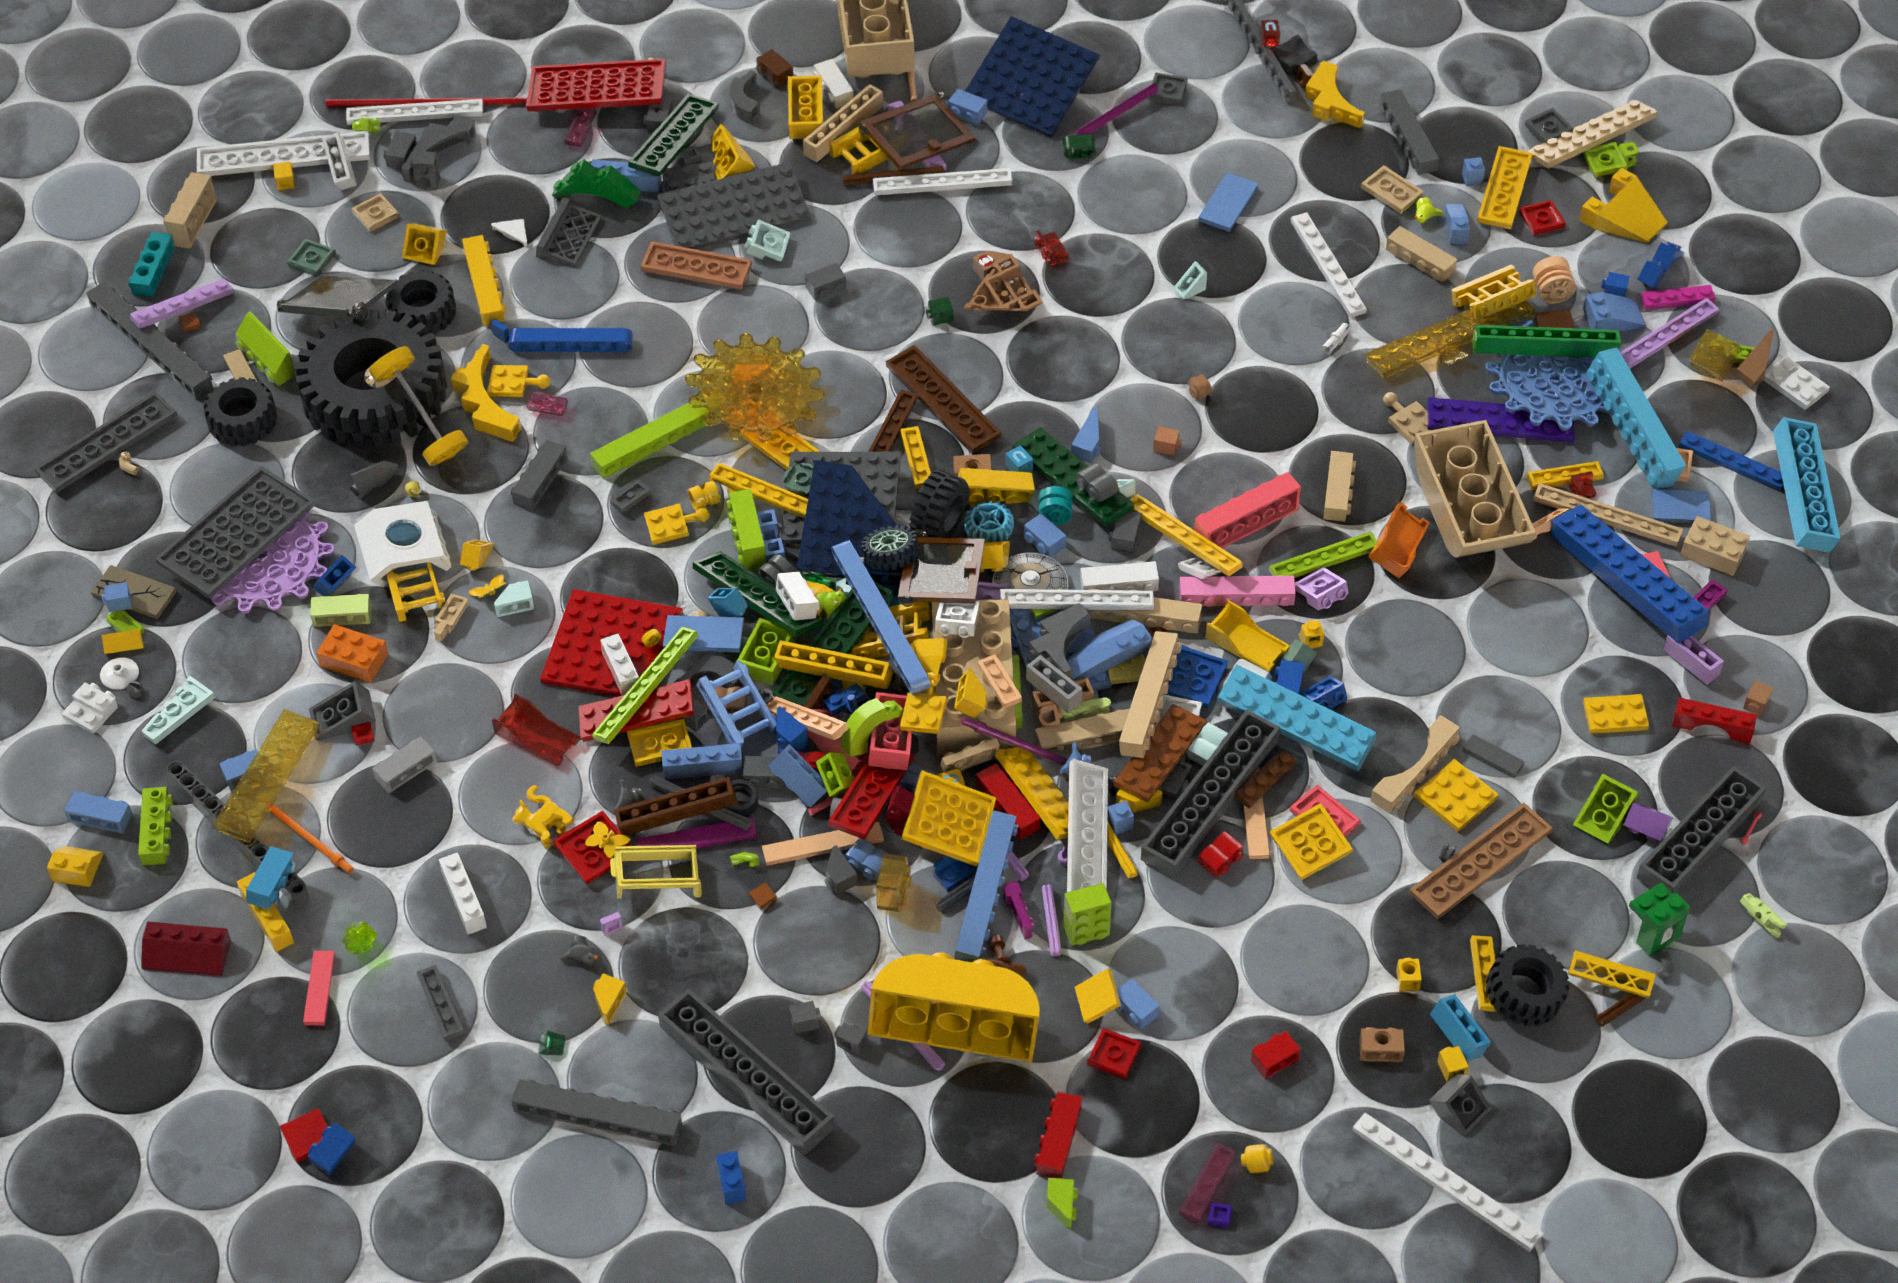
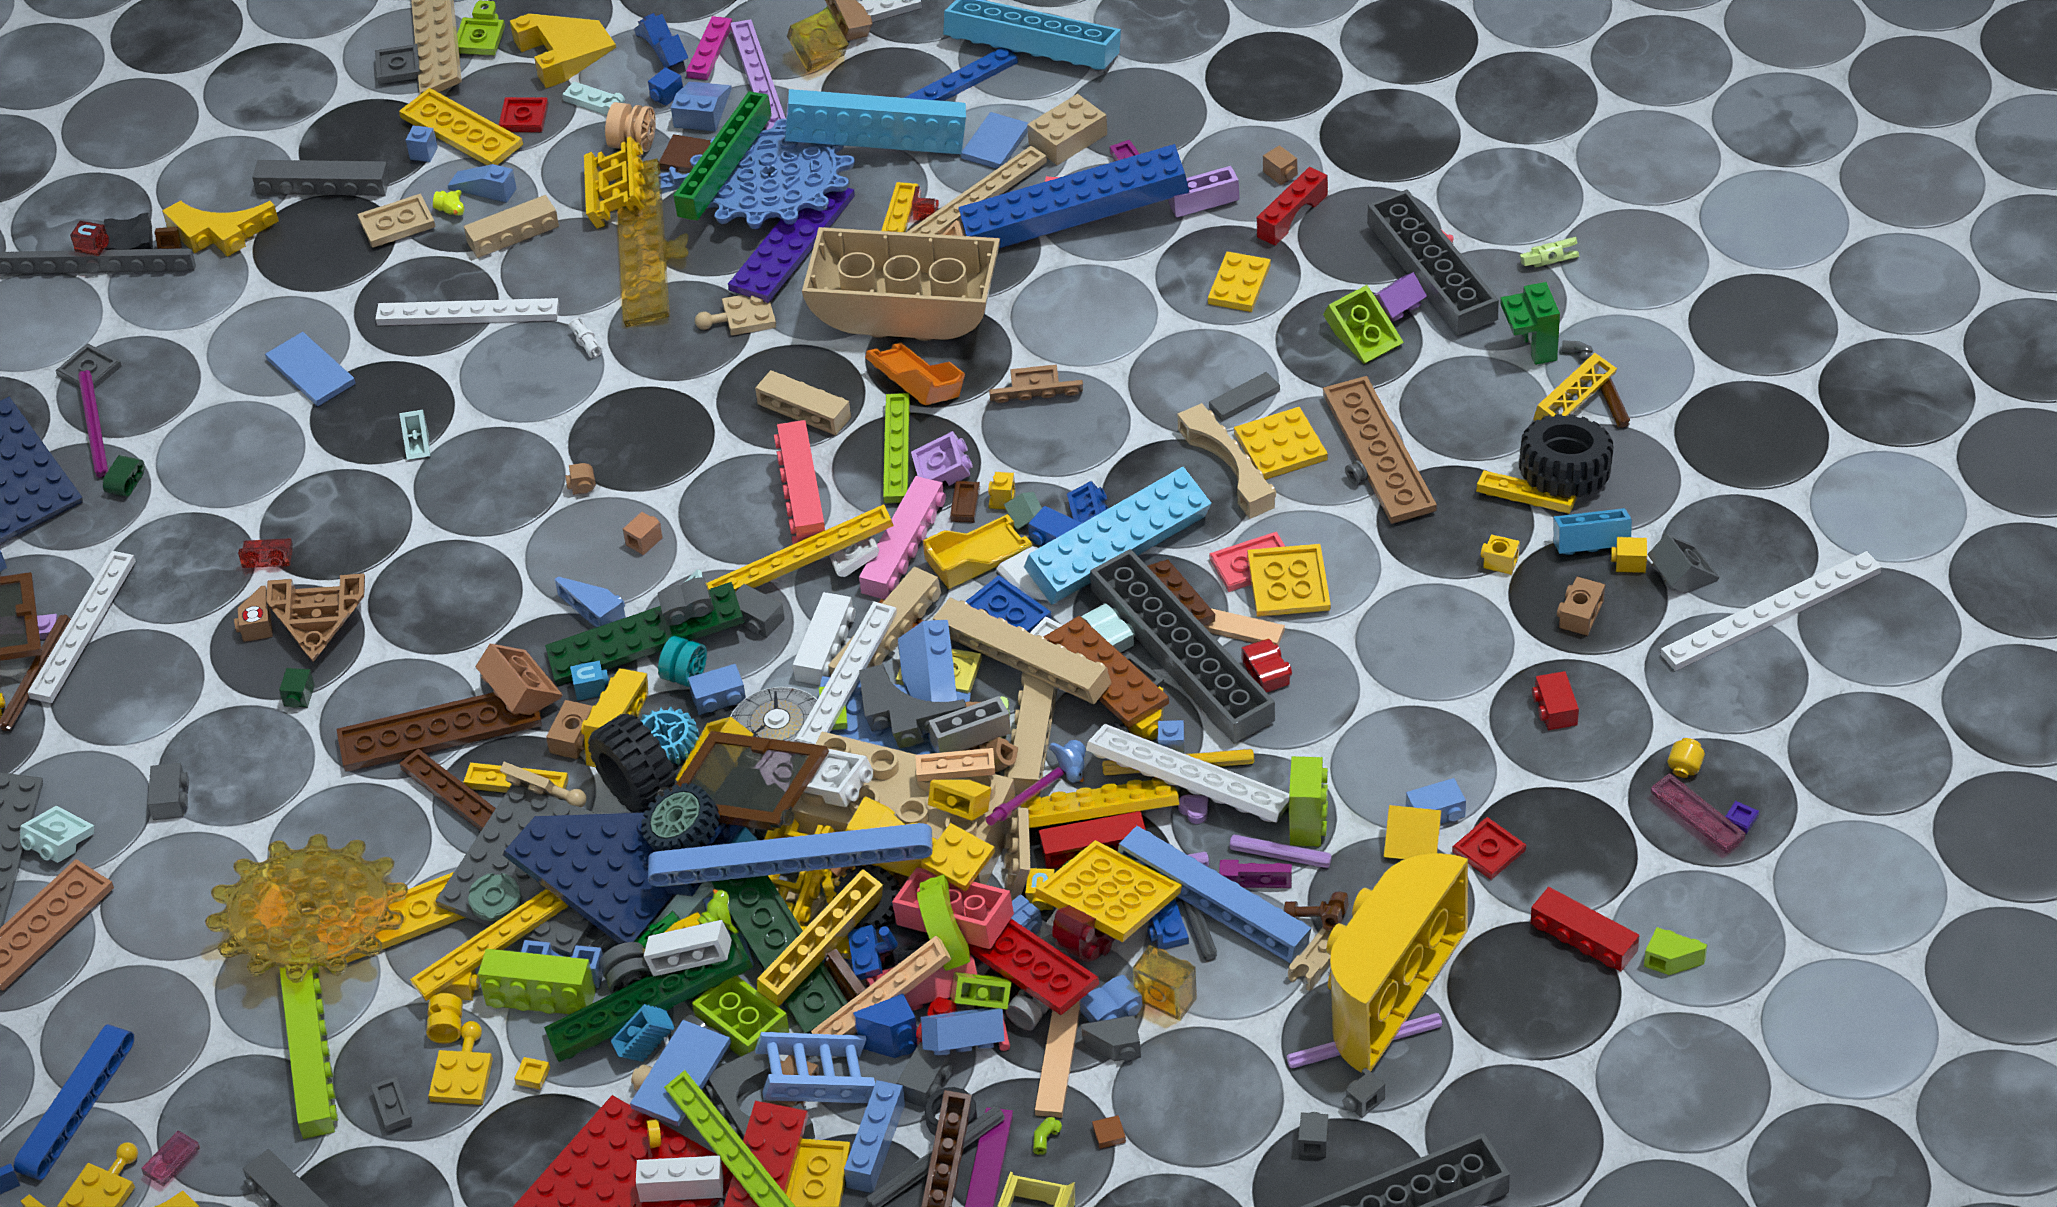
camera: 65 degrees left, 5 degrees down
(682, 559) = (532, 1073): none -> yellow plate
(904, 464) = (541, 785): none -> tan plate
(994, 421) = (517, 679): none -> nougat slope
(1294, 617) = (965, 501): none -> reddish brown tile
(1433, 617) = (1035, 382): none -> medium nougat bracket
(1582, 250) = (591, 97): none -> light aqua plate

